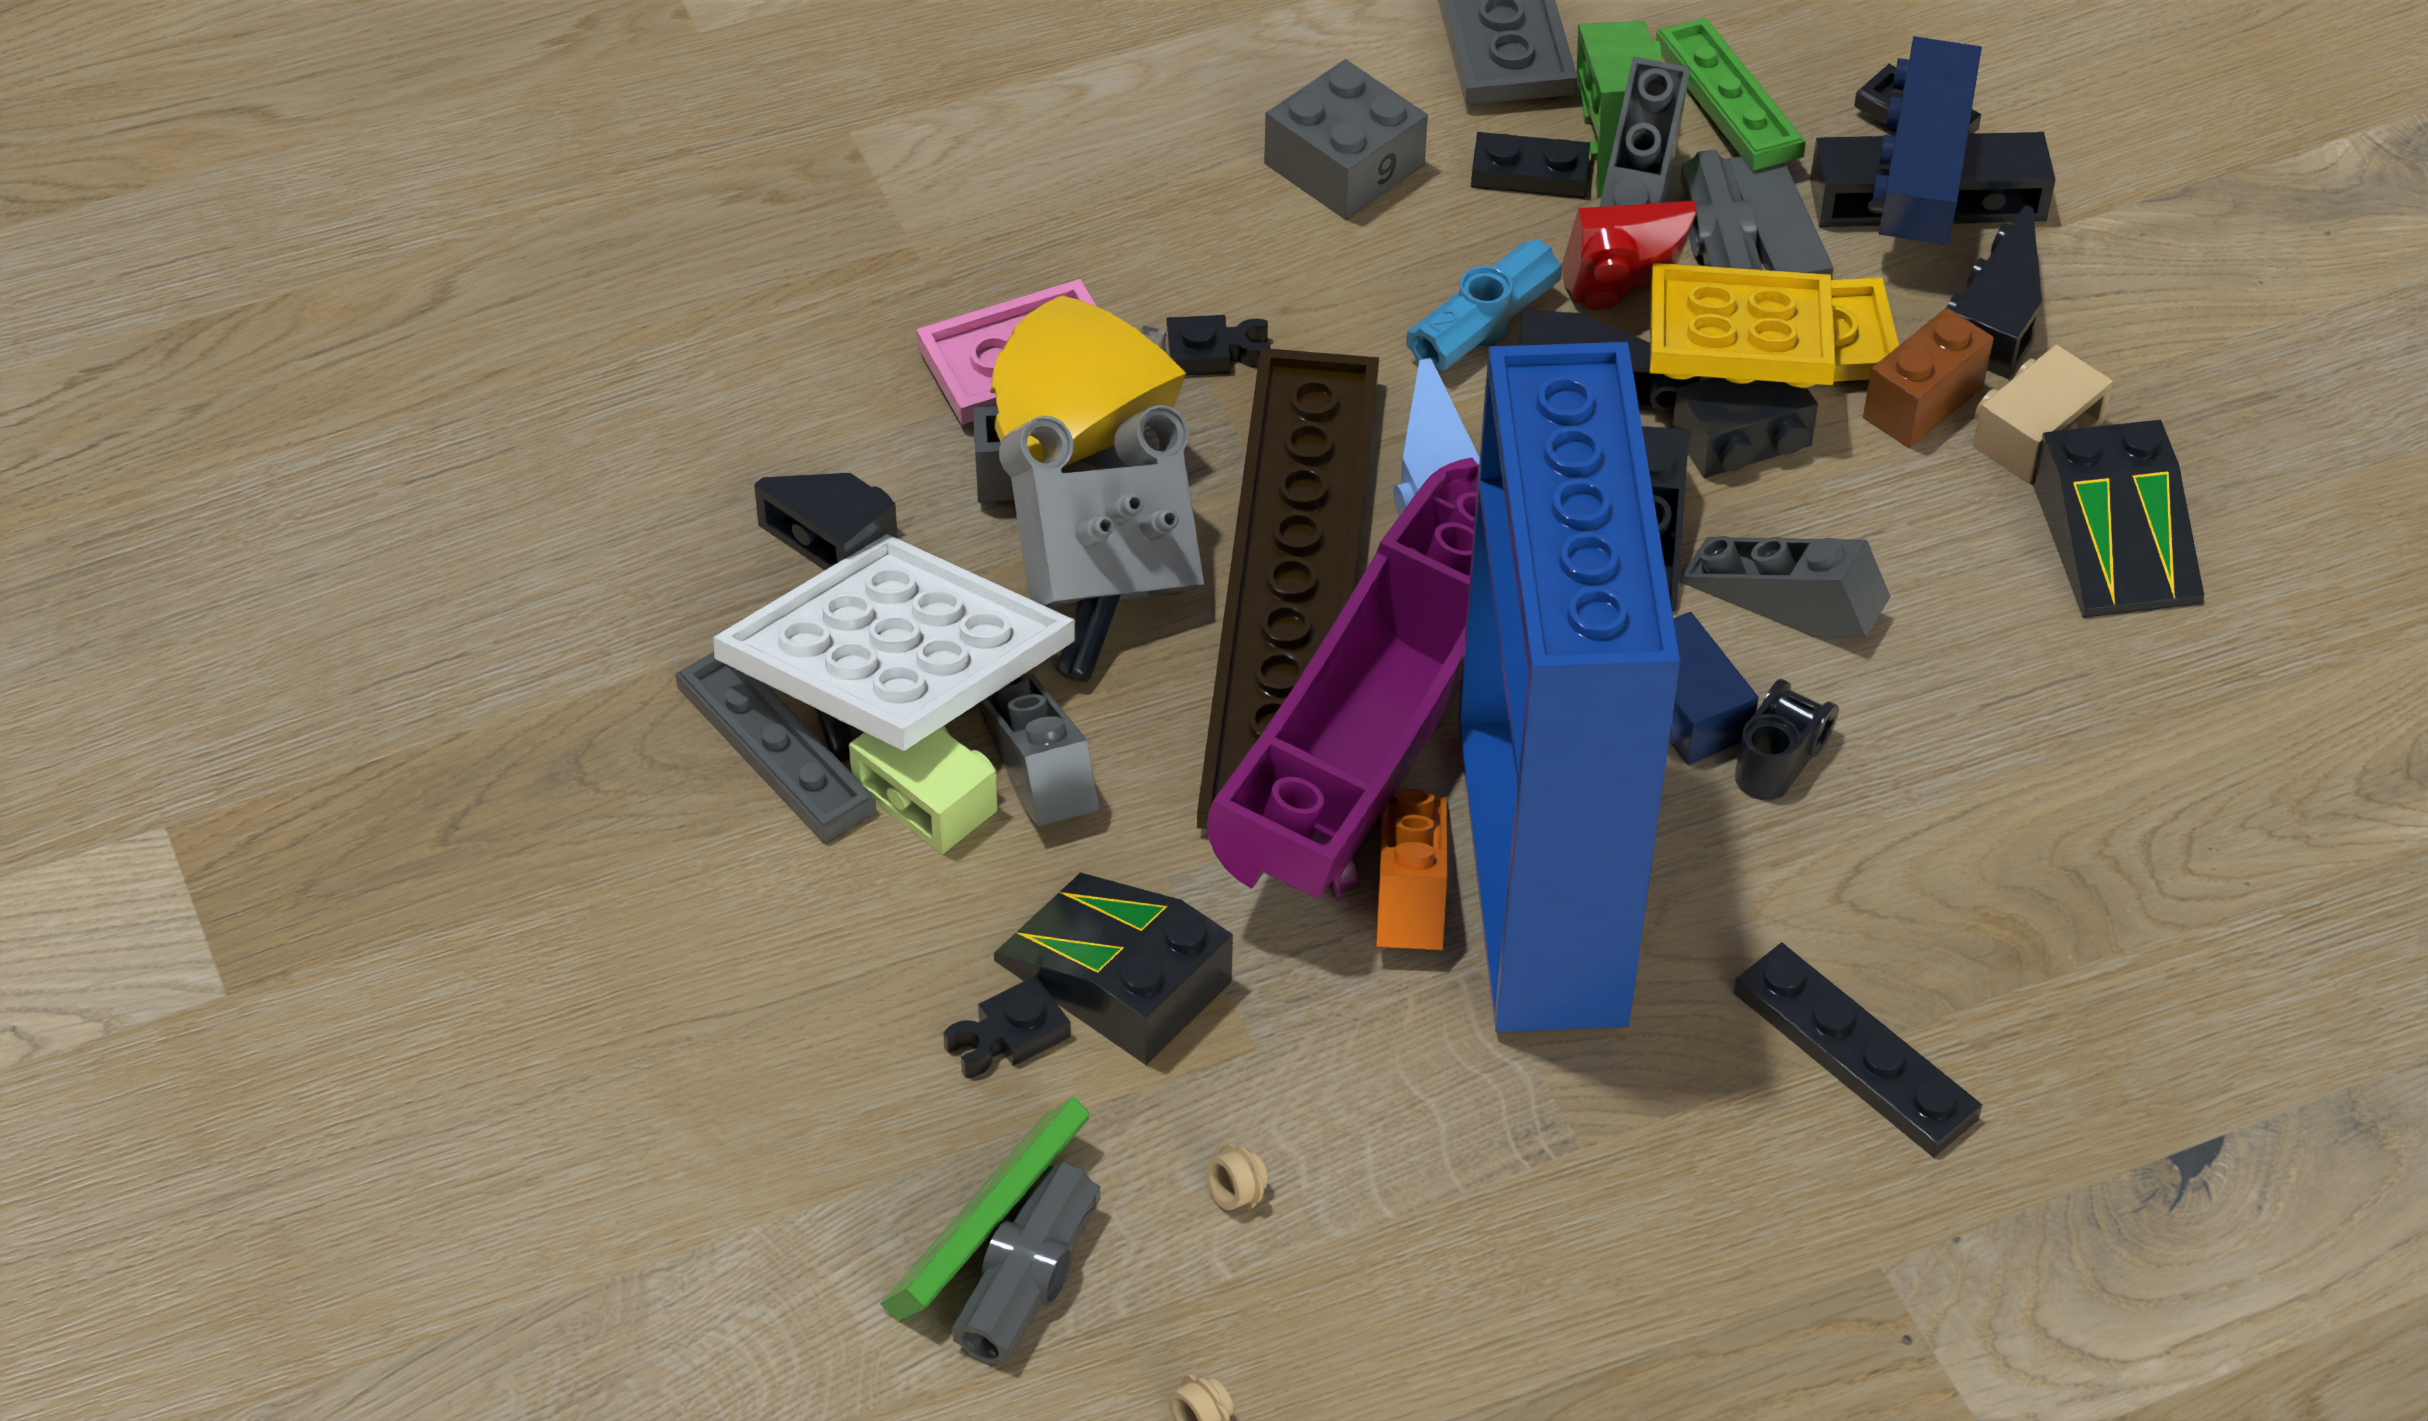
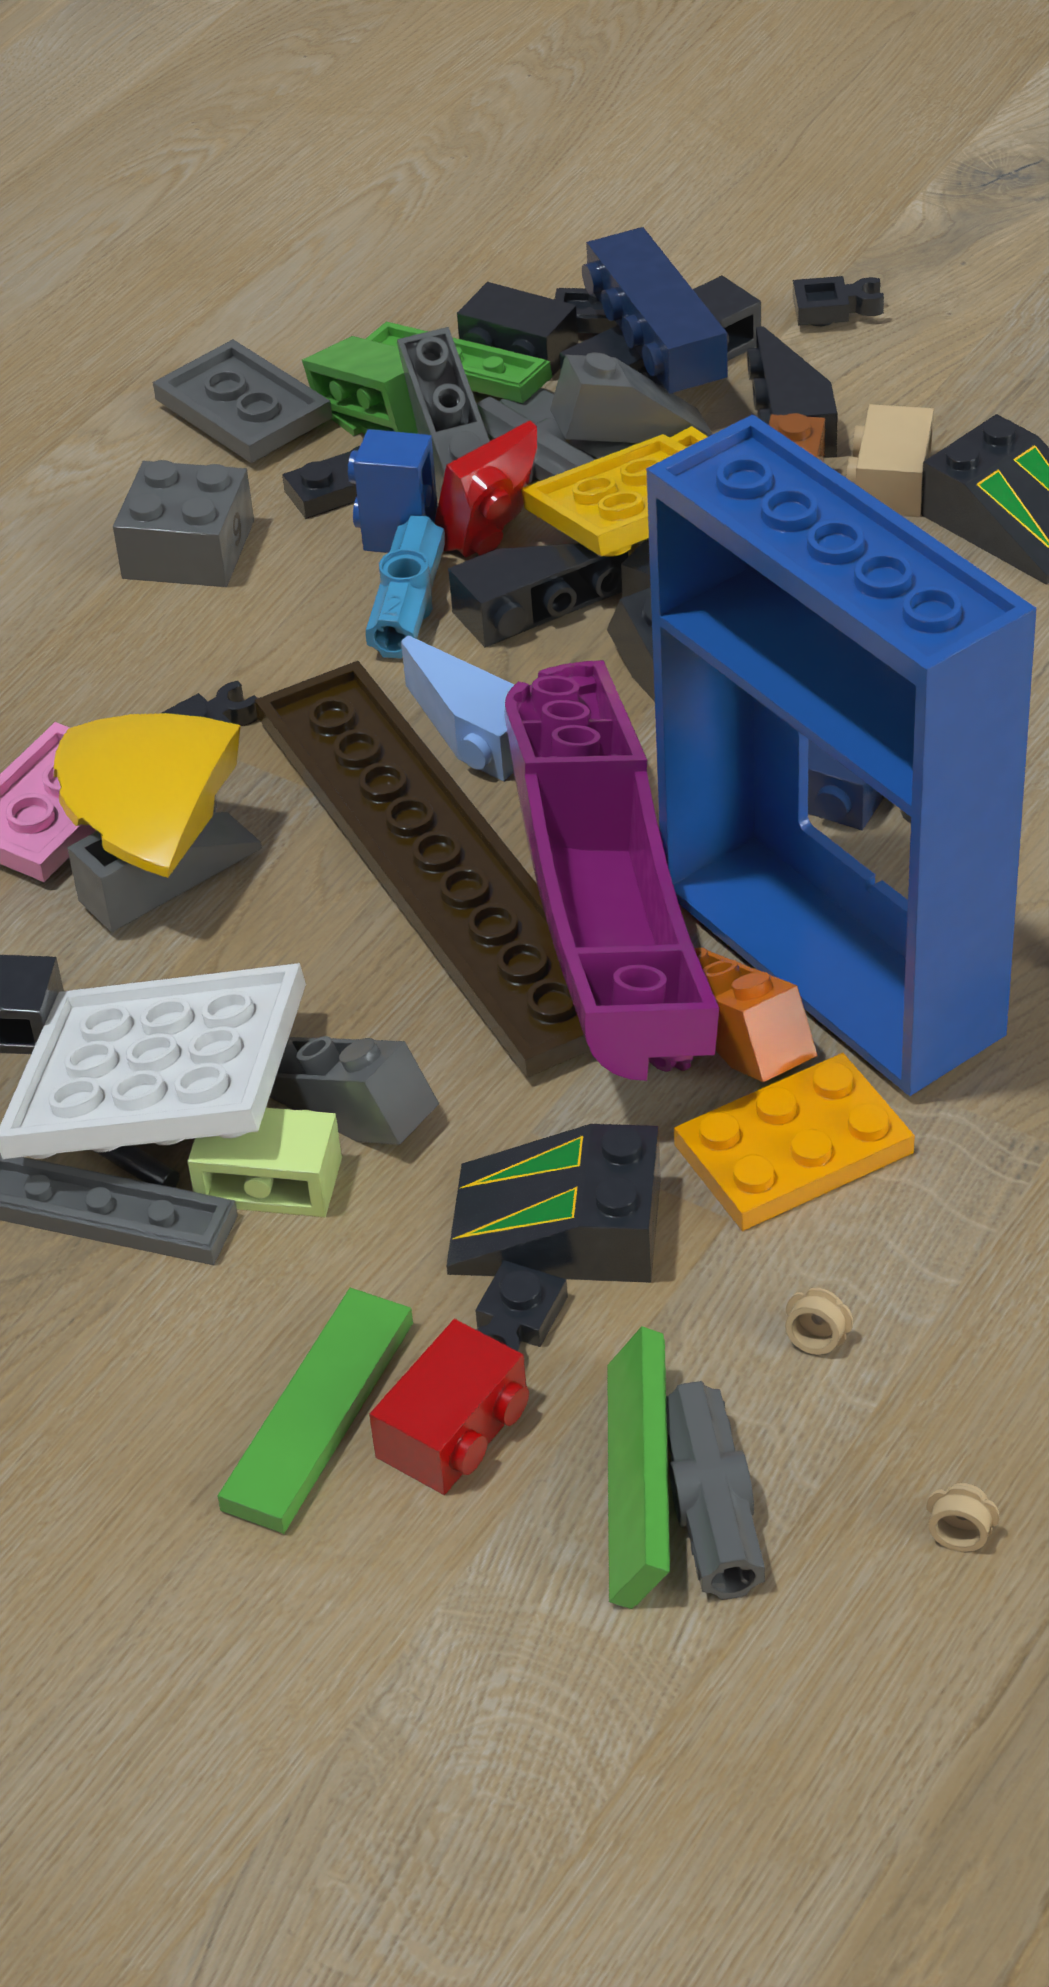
camera: 30 degrees left, 5 degrees down
(796, 1011) = (315, 1410): none -> bright green tile
(887, 1071) = (449, 1407): none -> red brick
(1103, 530) = (263, 884): light grey piece -> none
(1363, 1013) = (793, 1141): none -> light orange plate
(1540, 196) = (392, 483): none -> blue brick
(1815, 87) = (519, 323): none -> black brick
(1827, 225) = (614, 403): none -> dark grey slope
(2145, 207) = (831, 300): none -> black plate

